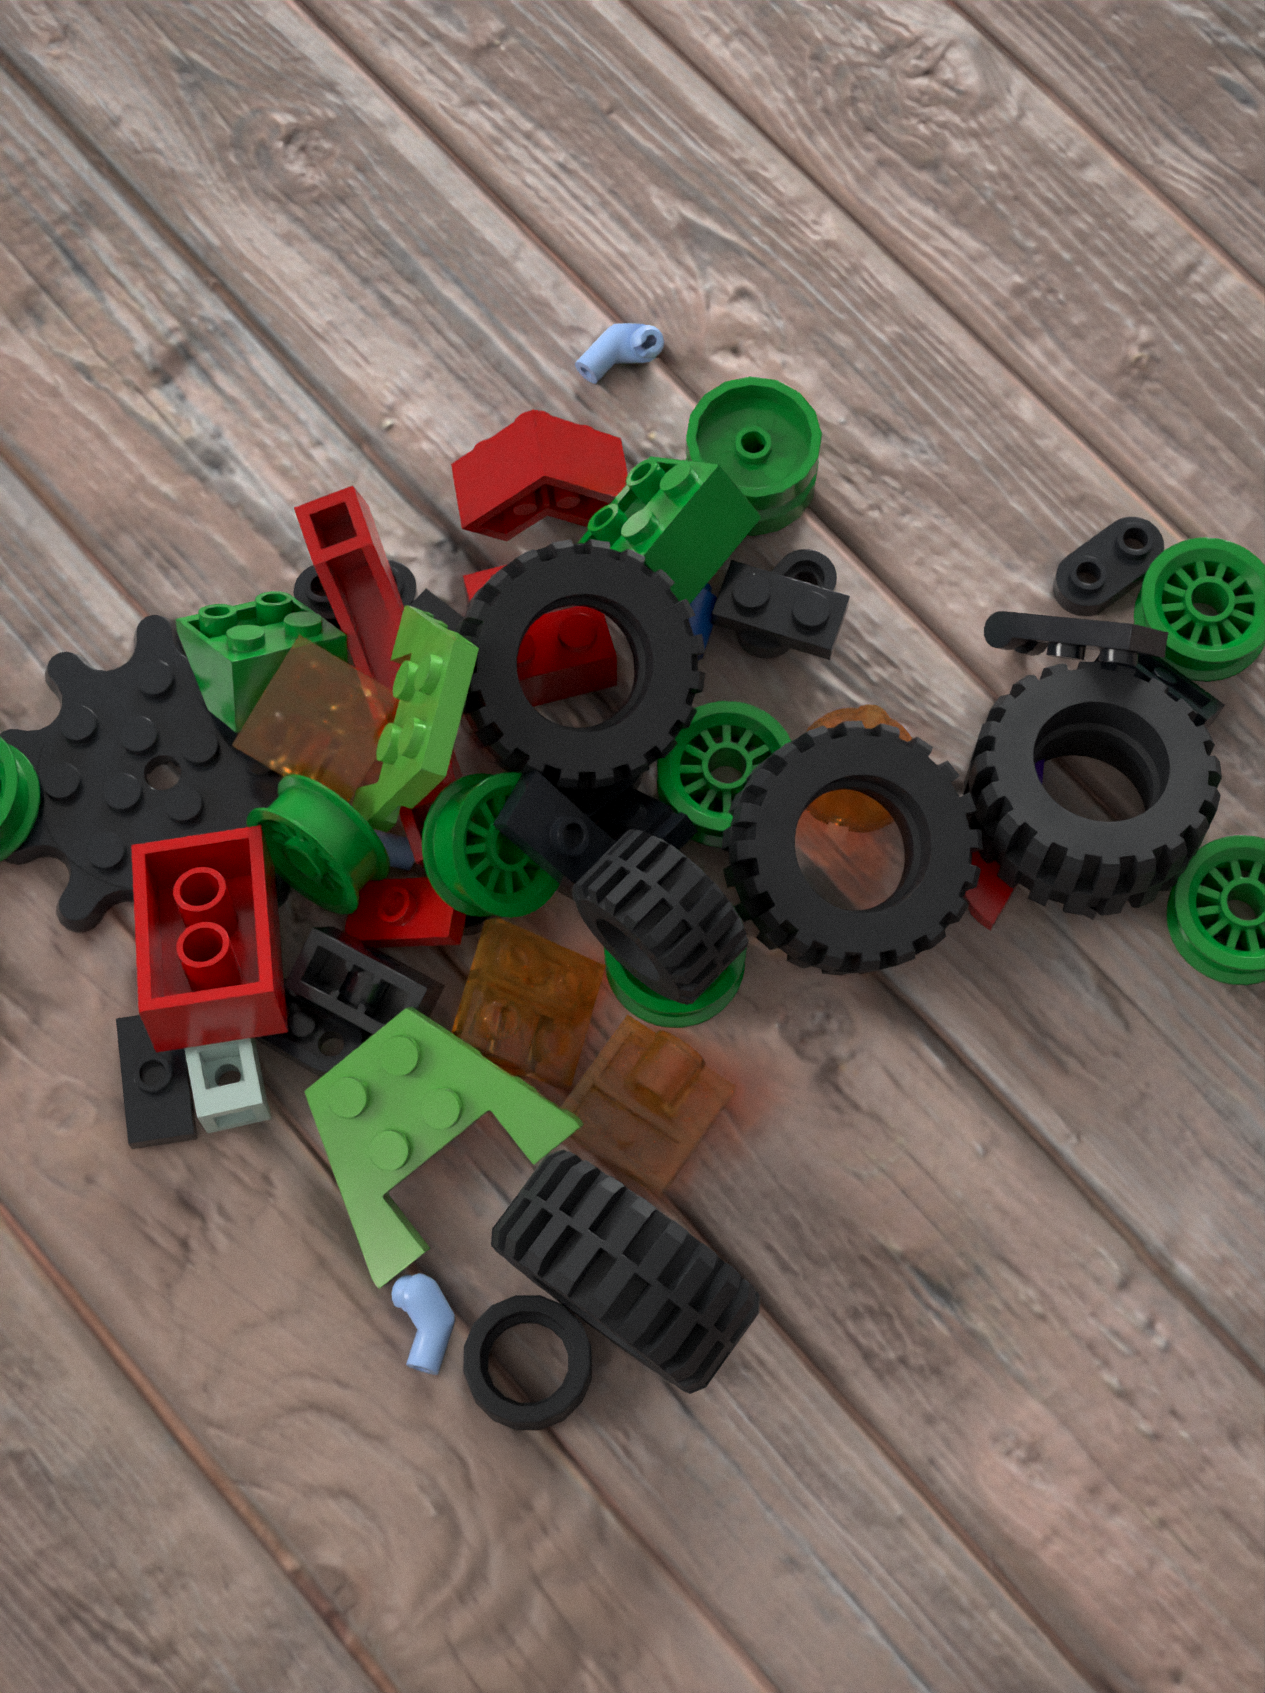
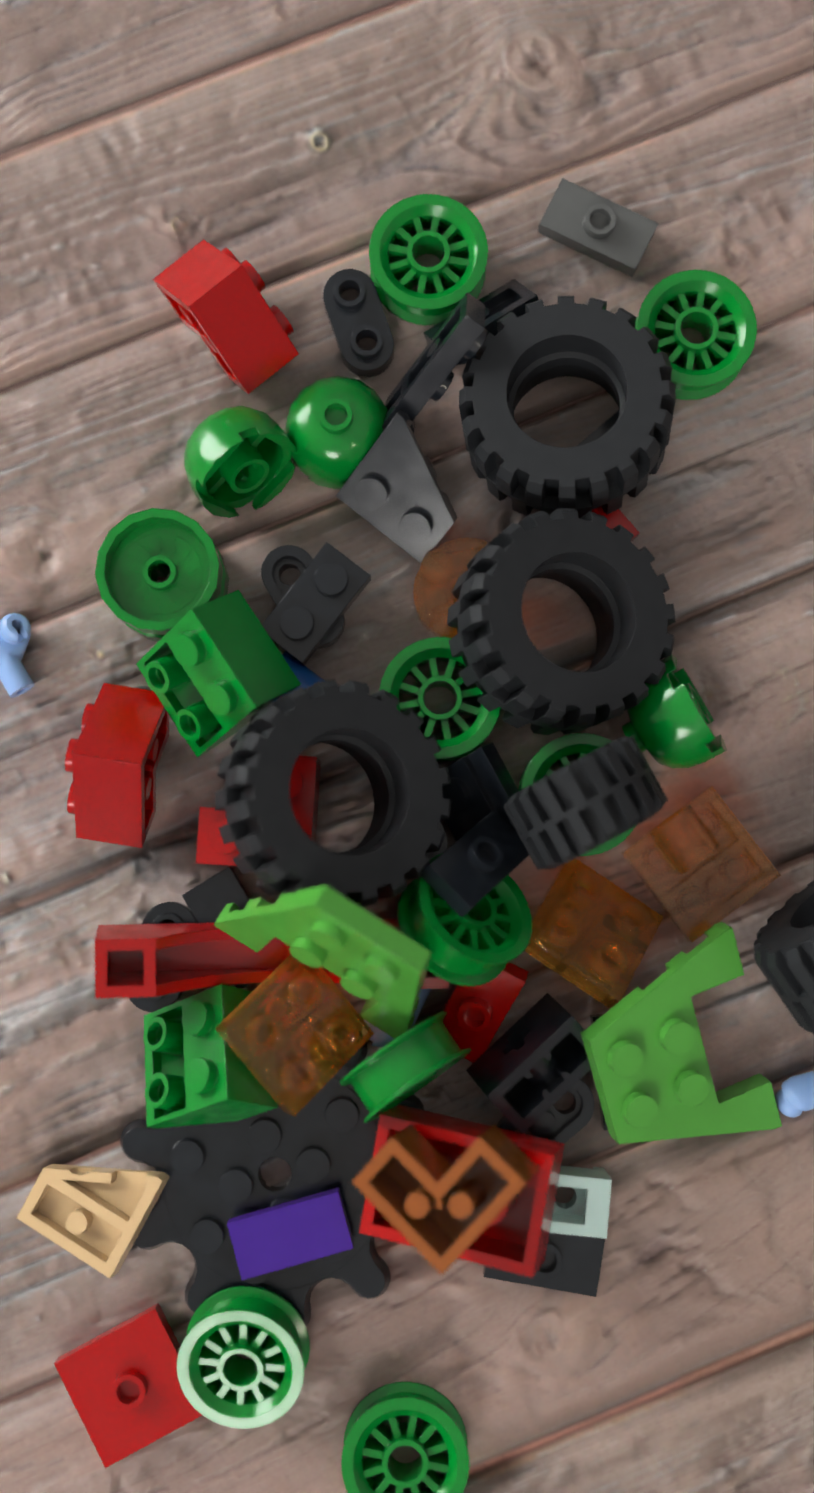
camera: 70 degrees left, 15 degrees up
(72, 607) = (92, 1210): none -> tan wing
(106, 797) = (290, 1233): none -> dark purple tile
(198, 885) = (442, 1204): none -> dark orange brick
(798, 1016) = (674, 722): none -> green cylinder
(903, 488) = (238, 459): none -> green cylinder
(936, 656) = (400, 491): none -> black wing
(973, 575) = (334, 428): none -> green cylinder
(1055, 416) = (226, 309): none -> red brick

